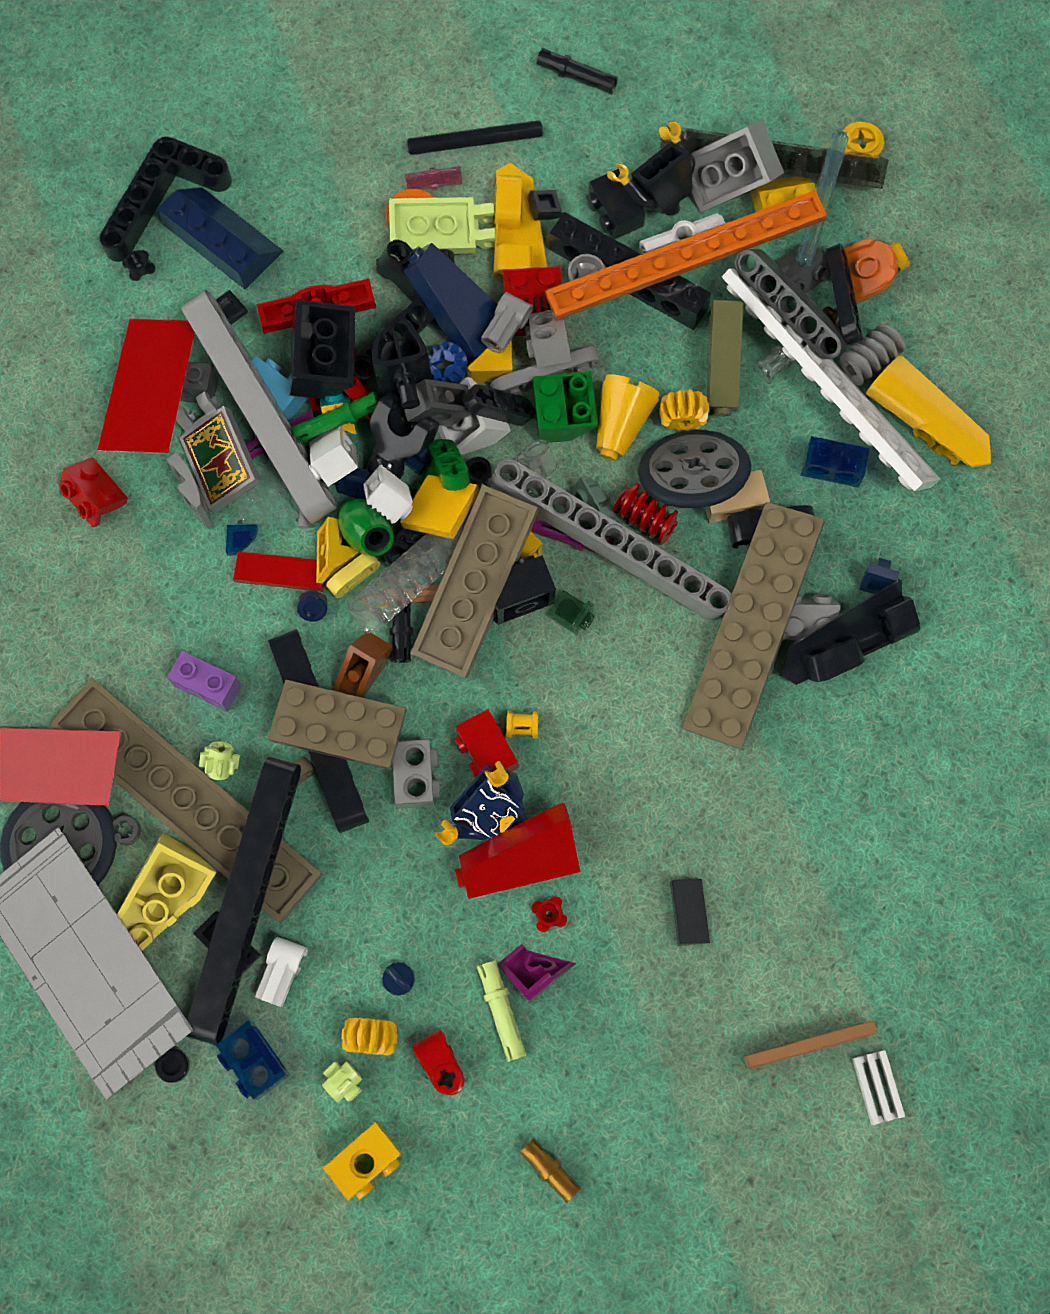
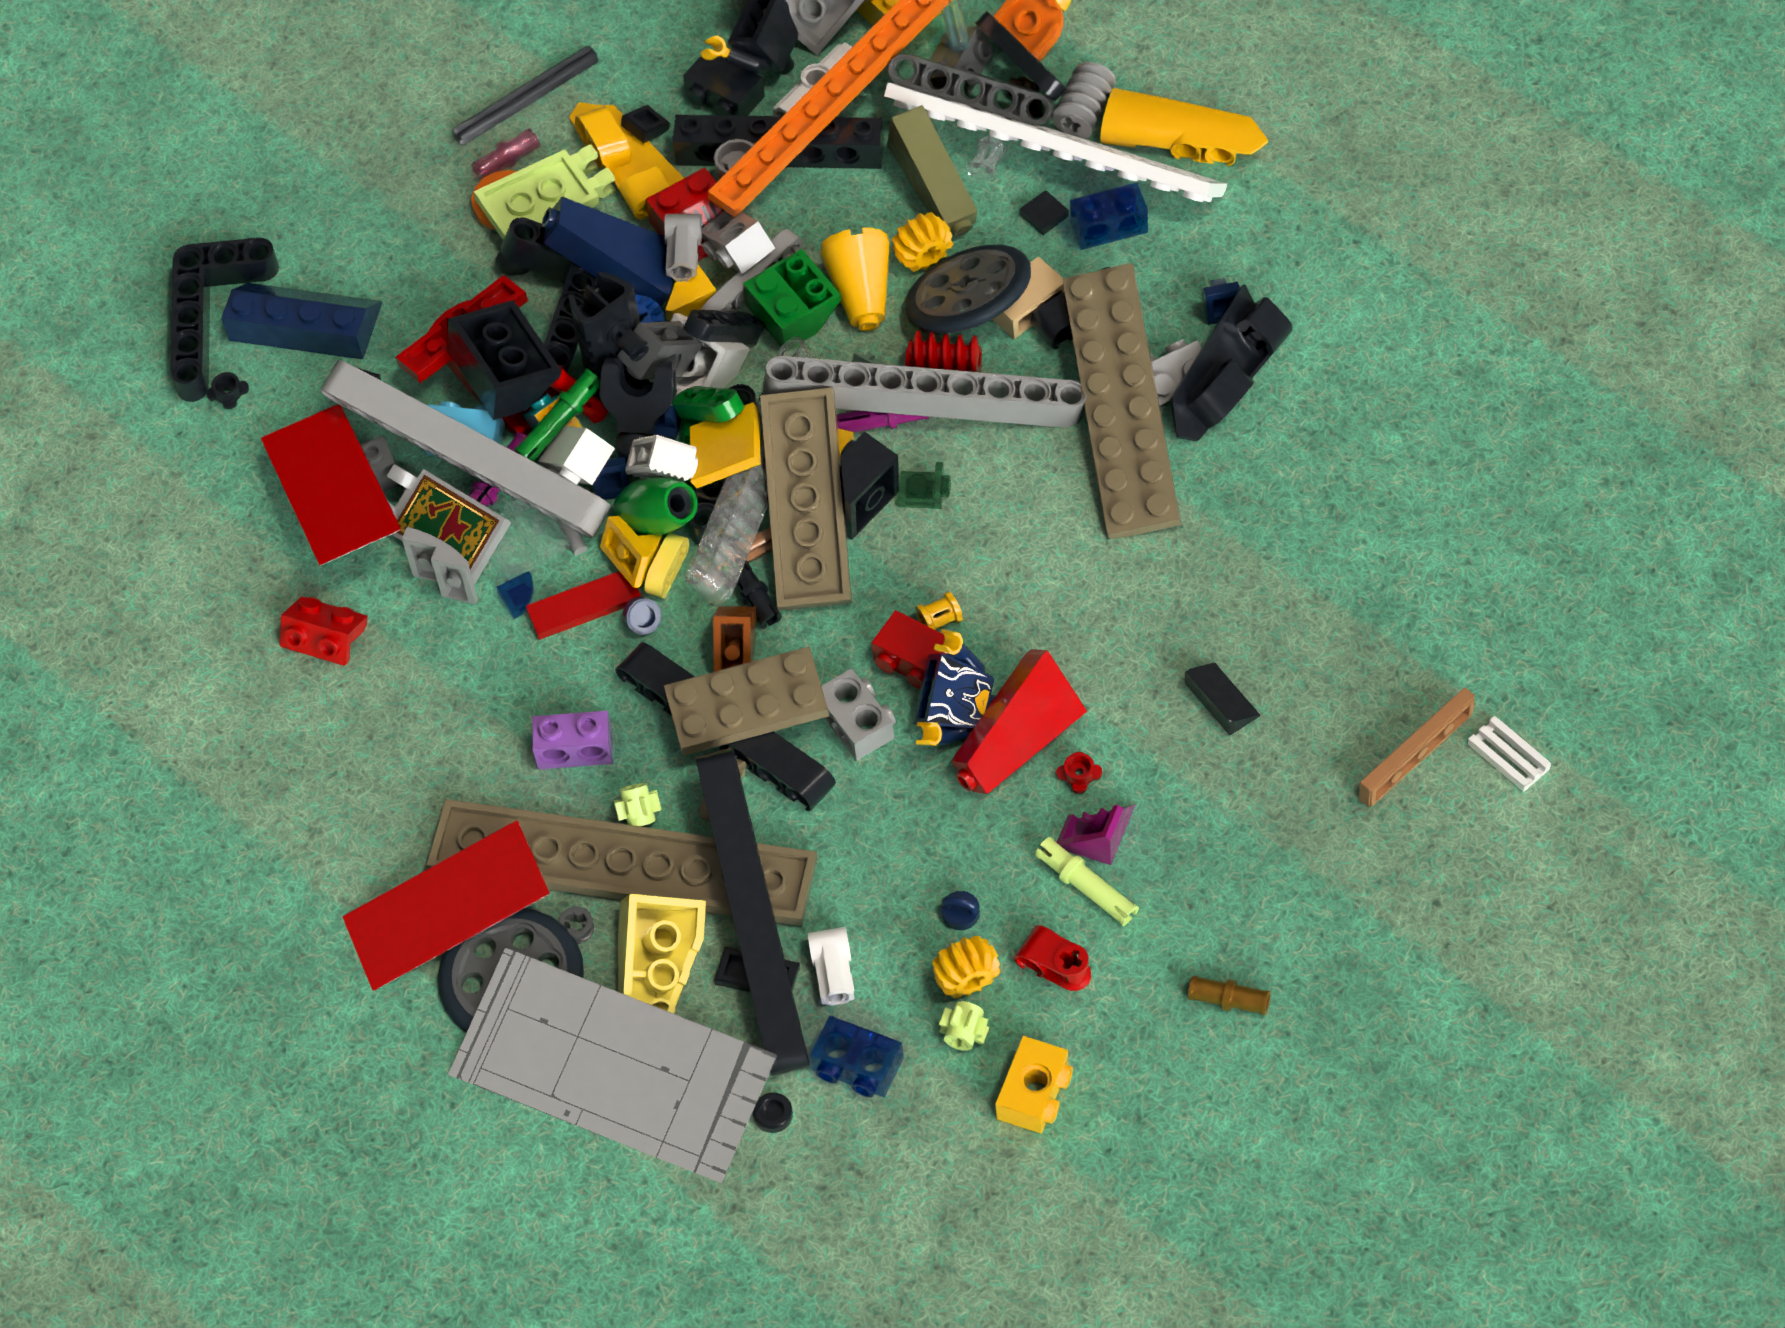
camera: 25 degrees left, 15 degrees down
(790, 430) = (1044, 212): none -> black tile

